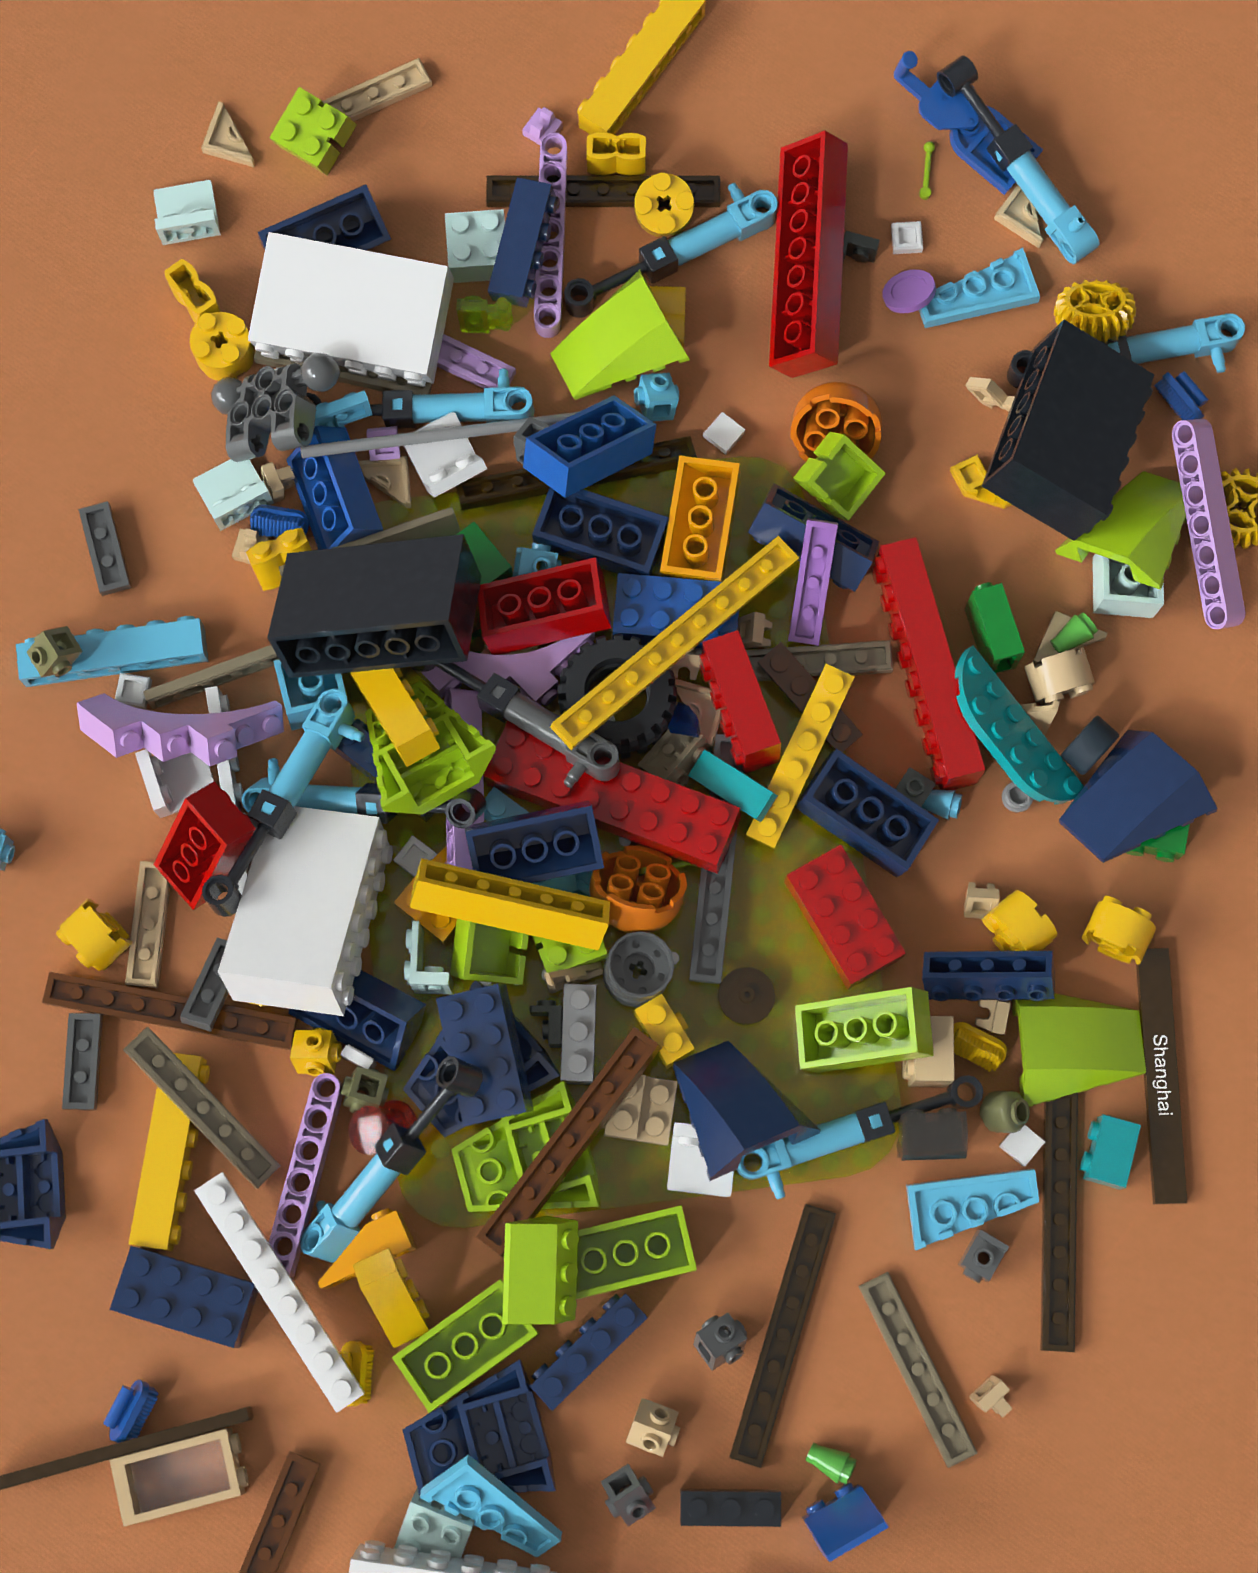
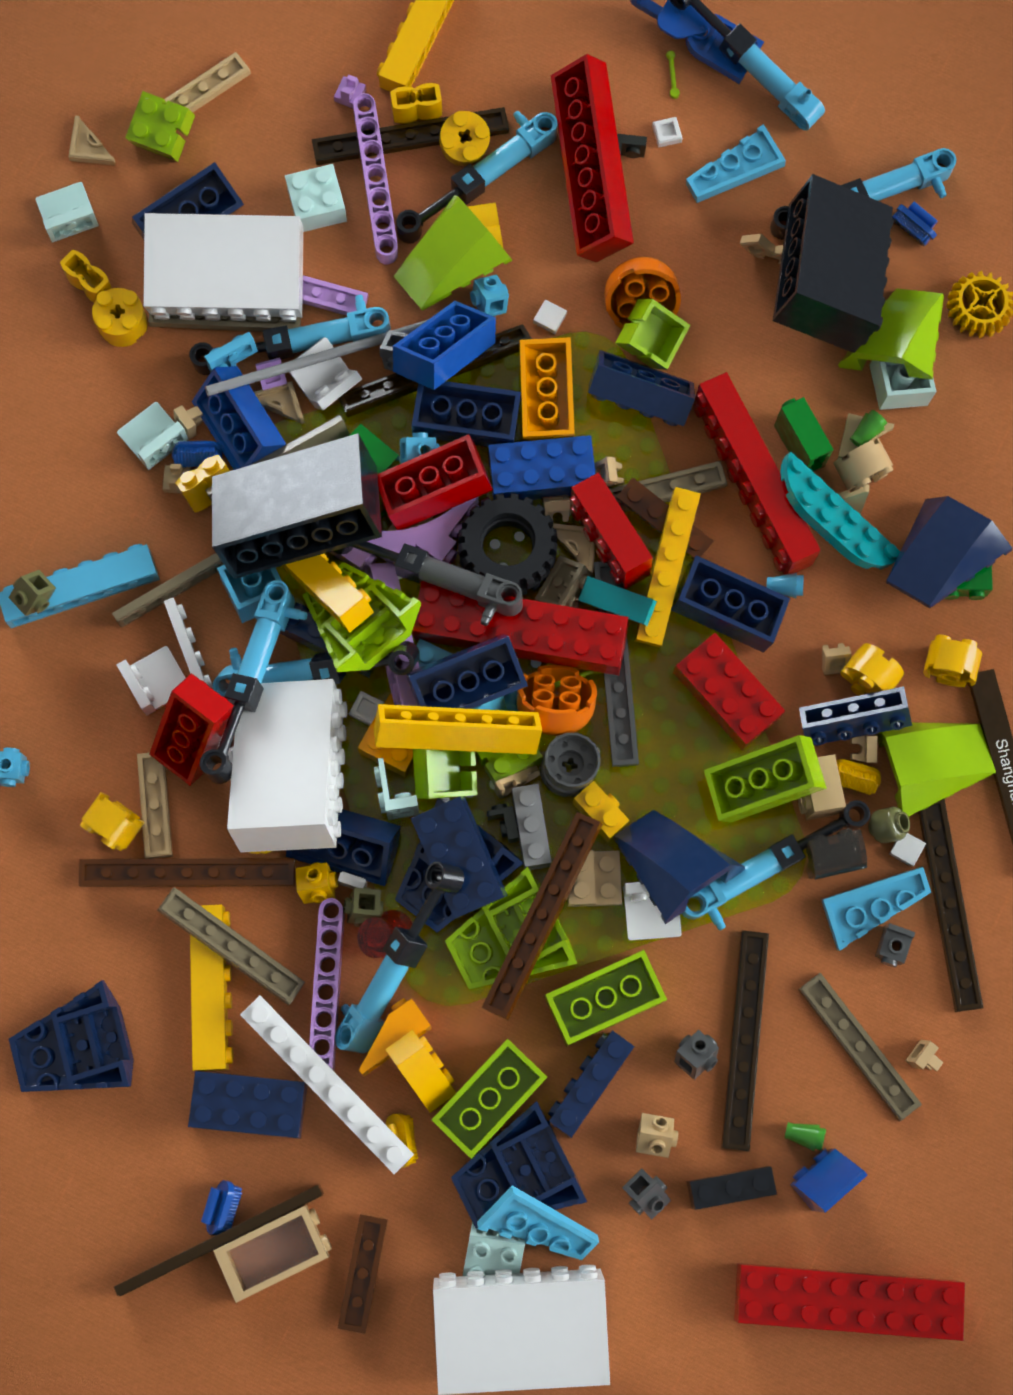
camera: 15 degrees left, 0 degrees up
(82, 1061) = (122, 928): dark grey plate -> none
(104, 548) = (54, 501): dark grey plate -> none
(131, 689) = (101, 615): white tile -> none
(168, 735) = (143, 644): lavender arch -> none
(208, 993) = (218, 847): dark grey plate -> none
(273, 404) = (174, 354): dark grey connector -> none
(479, 317) = (330, 255): clear neon green plate -> none
(522, 242) = (355, 188): dark blue brick -> none
(540, 1271) = (541, 1024): lime slope -> none
(673, 643) = (547, 492): yellow plate -> none
(684, 721) = (566, 556): clear blue tile -> none
(746, 996) = (661, 771): dark brown piece -> none
(813, 581) = (649, 423): medium lavender plate -> none
(909, 291) = (678, 175): medium lavender piece -> none
(915, 786) = (765, 575): pearl dark grey bracket -> none
(970, 477) = (761, 322): yellow tile -> none
(1015, 799) = (846, 570): light grey plate -> none
(1020, 217) = (756, 99): tan tile -> none
(1090, 745) = (899, 516): black wheel -> none
(1097, 309) = (835, 161): yellow gear -> none
(1110, 1151) = (980, 841): teal brick -> none
(1210, 543) = (957, 332): lavender beam -> none

